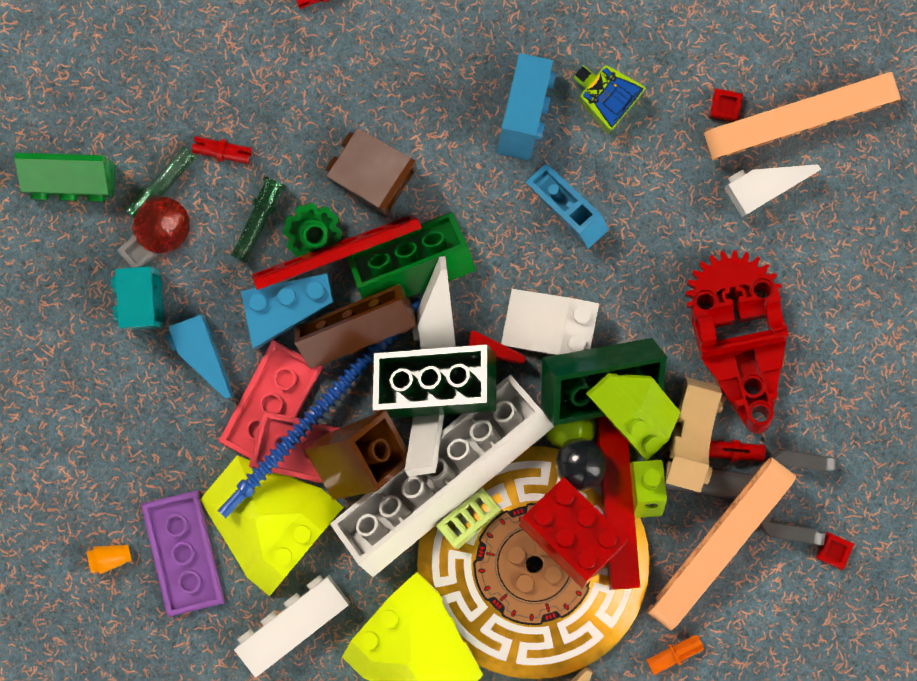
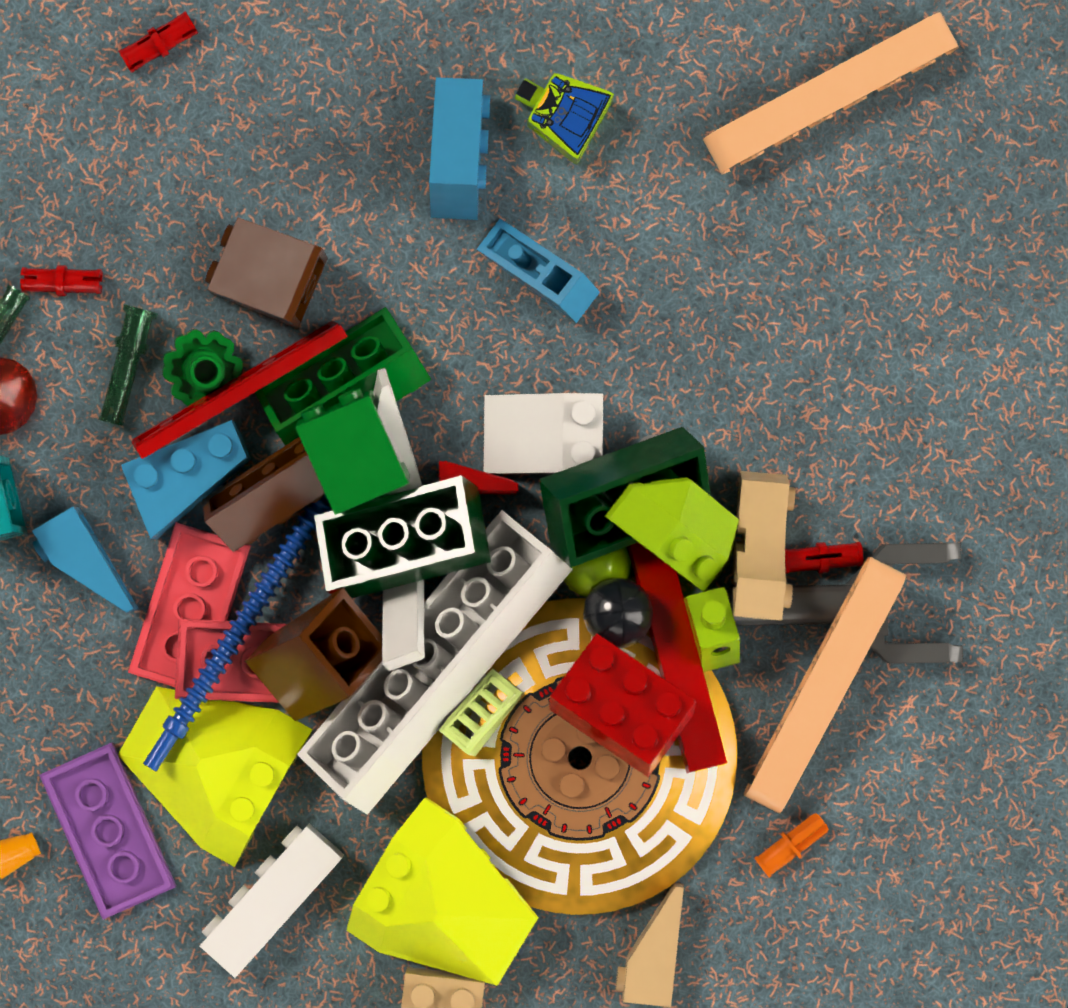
camera: 10 degrees left, 0 degrees up
(410, 311) = (351, 451): none -> green panel
(726, 105) = (726, 97): red tile -> none
(743, 359) = (815, 431): red connector -> none
(762, 185) = (795, 195): white slope -> none
(835, 551) = (980, 667): red tile -> none

